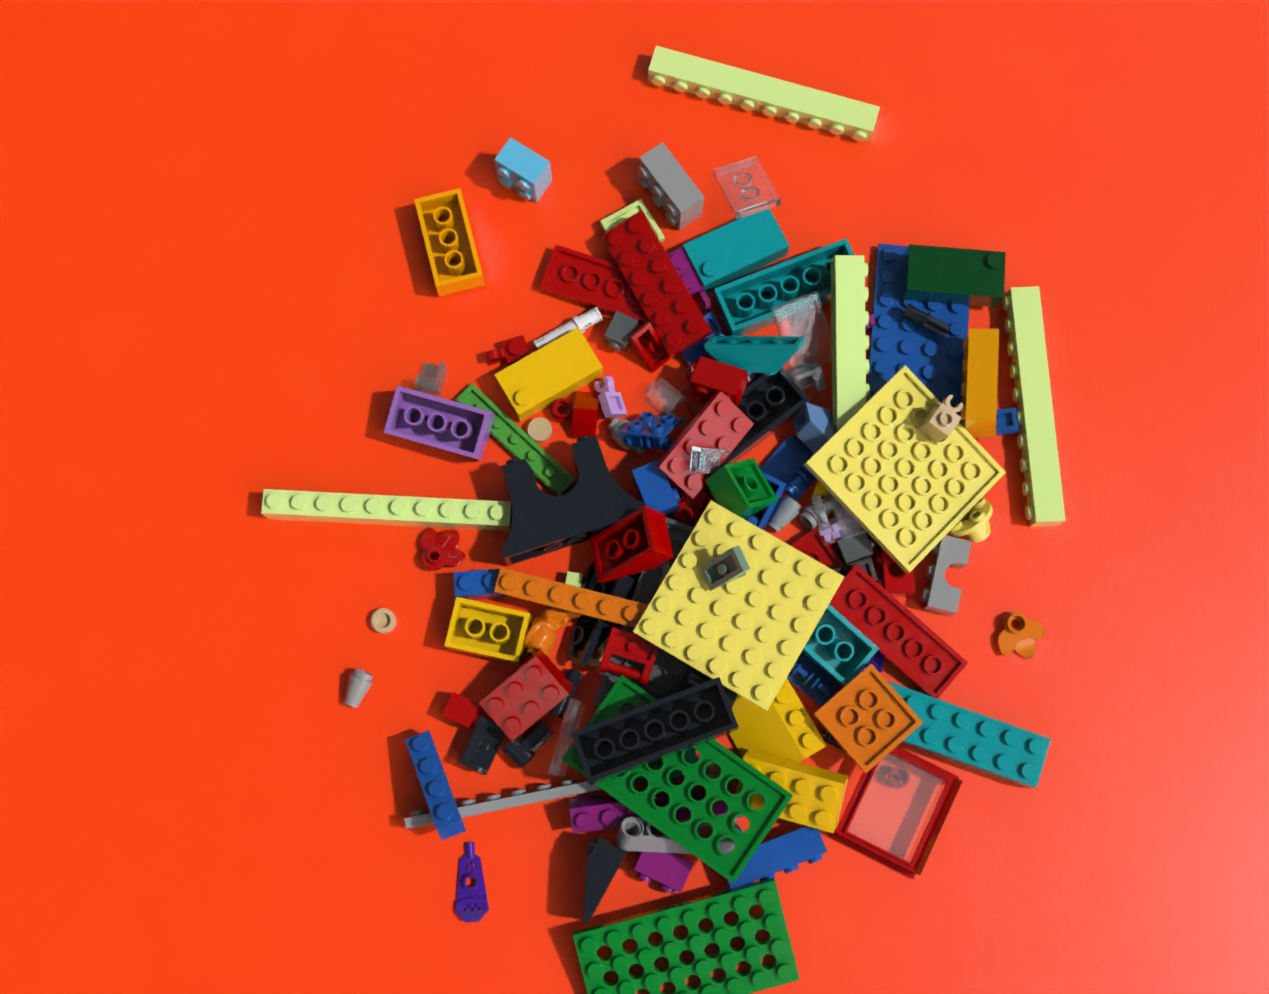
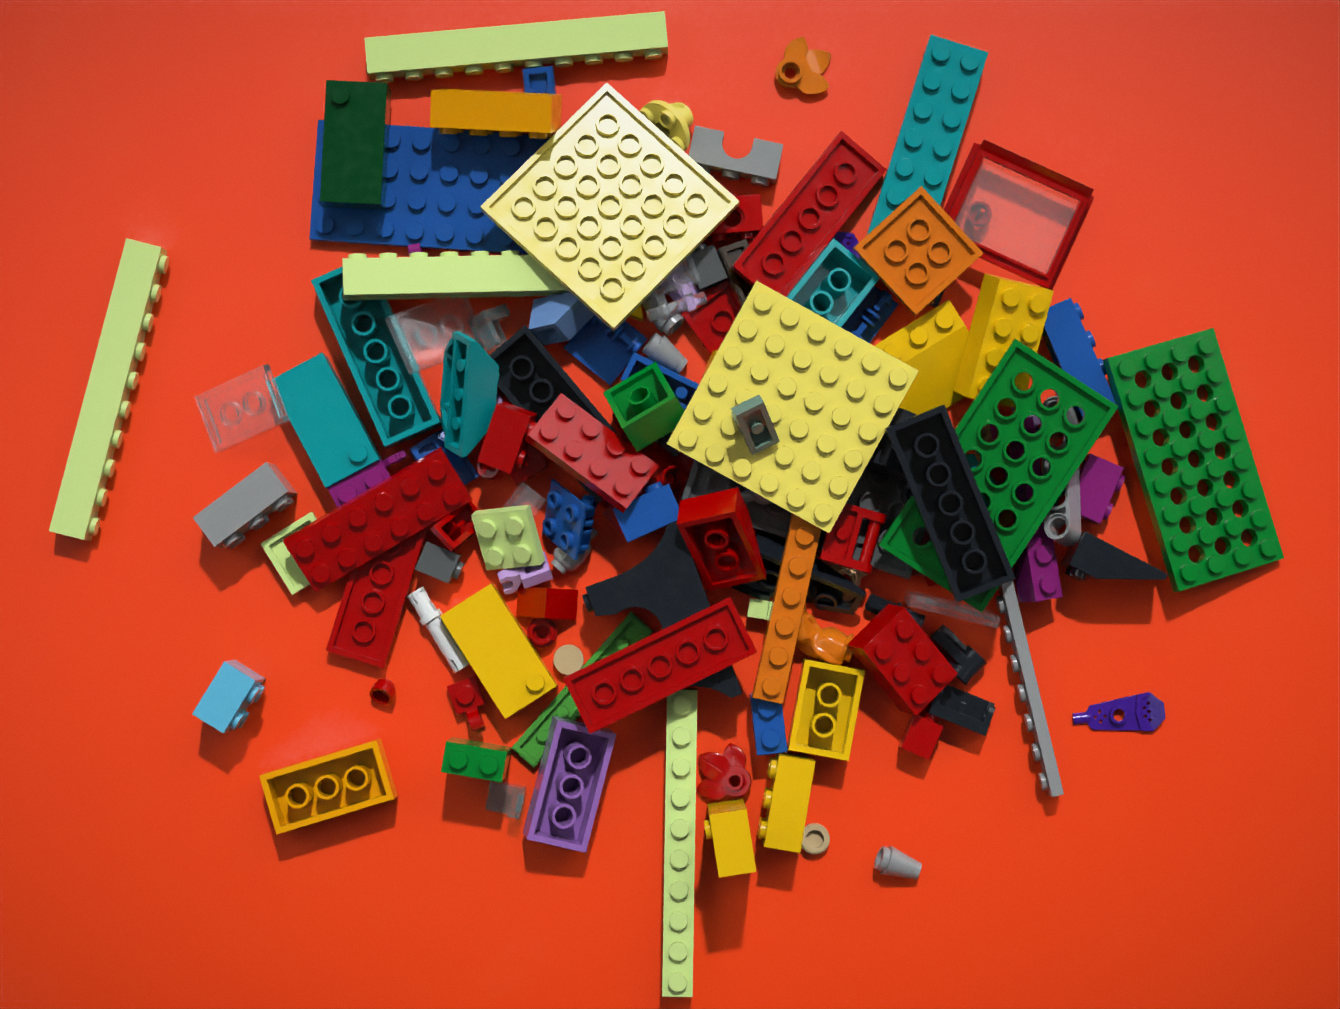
camera: 90 degrees left, 10 degrees up
(386, 543) = (730, 837): none -> yellow brick
(414, 595) = (786, 801): none -> yellow brick
(435, 785) = (1013, 761): blue brick -> none
(463, 351) = (476, 759): none -> green brick
(521, 286) = (383, 691): none -> red hinge
(530, 491) = (660, 665): none -> red plate
(639, 383) = (508, 537): none -> yellowish green plate
(706, 459) = (614, 450): clear light blue panel -> none
(925, 321) = (414, 180): black axle -> none
(941, 420) = (552, 163): tan brick -> none

